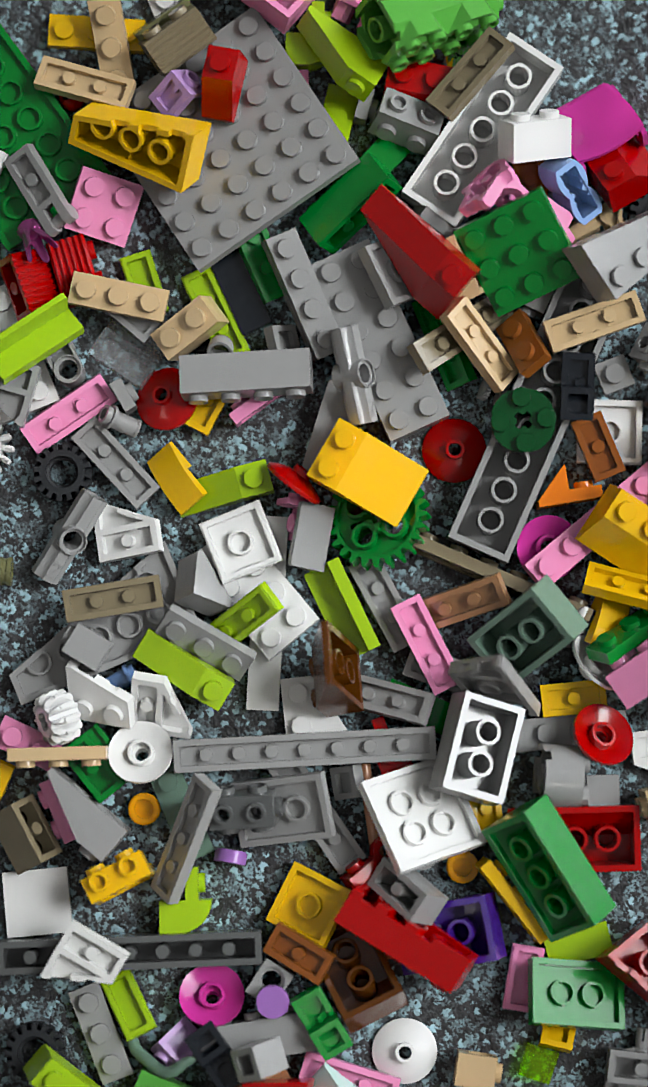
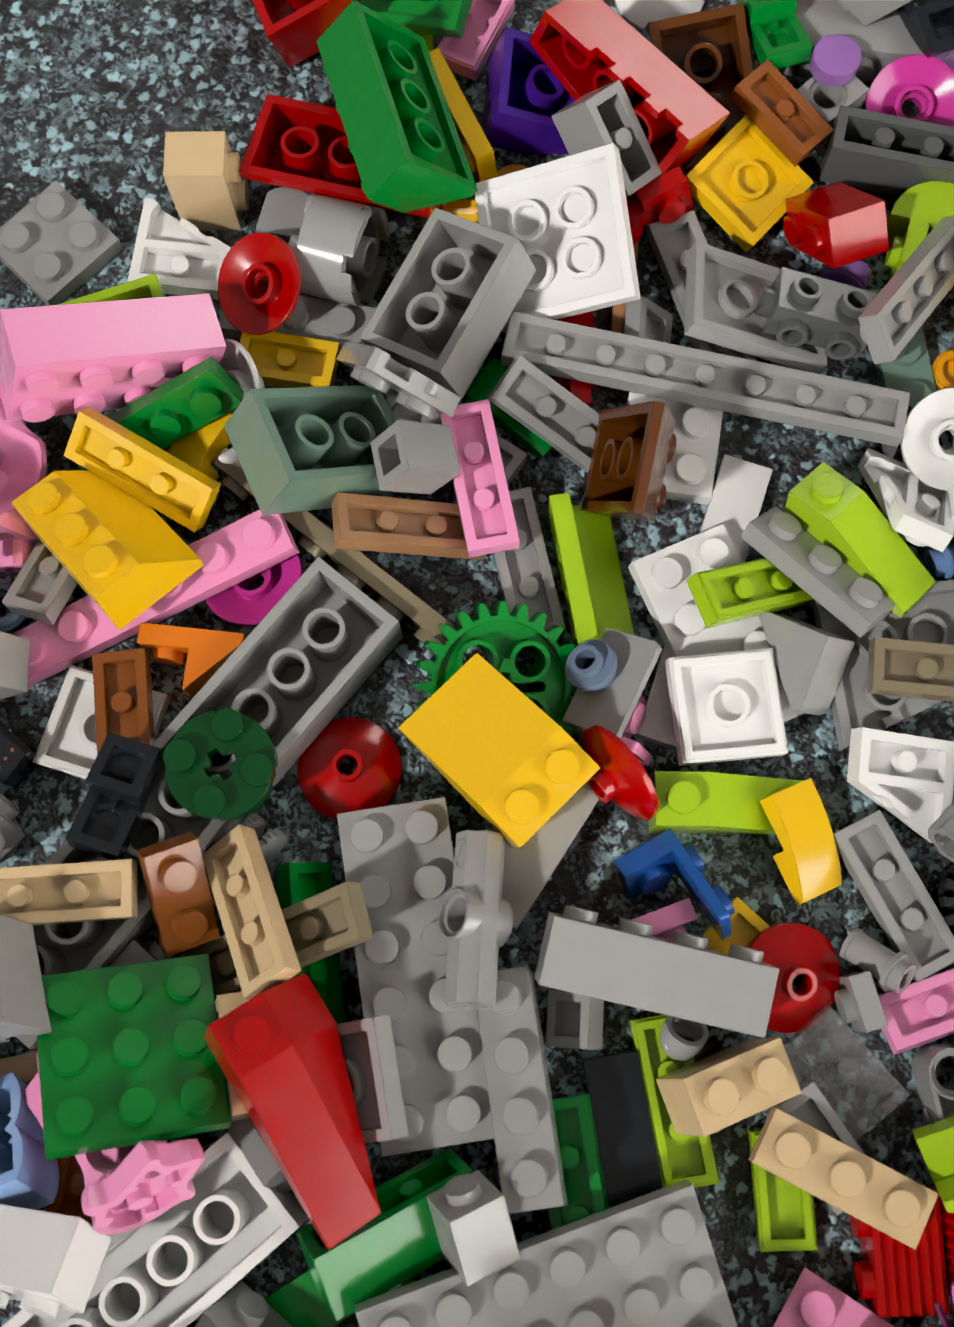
camera: 160 degrees left, 10 degrees down
(246, 881) = (836, 224): none -> red brick
(260, 438) = (657, 860): none -> blue bracket
(310, 216) = (473, 1226): none -> light grey brick
(319, 538) = (599, 674): none -> sand blue plate
(467, 638) = (414, 457): none -> light grey brick
(613, 375) = (56, 813): light grey plate -> none

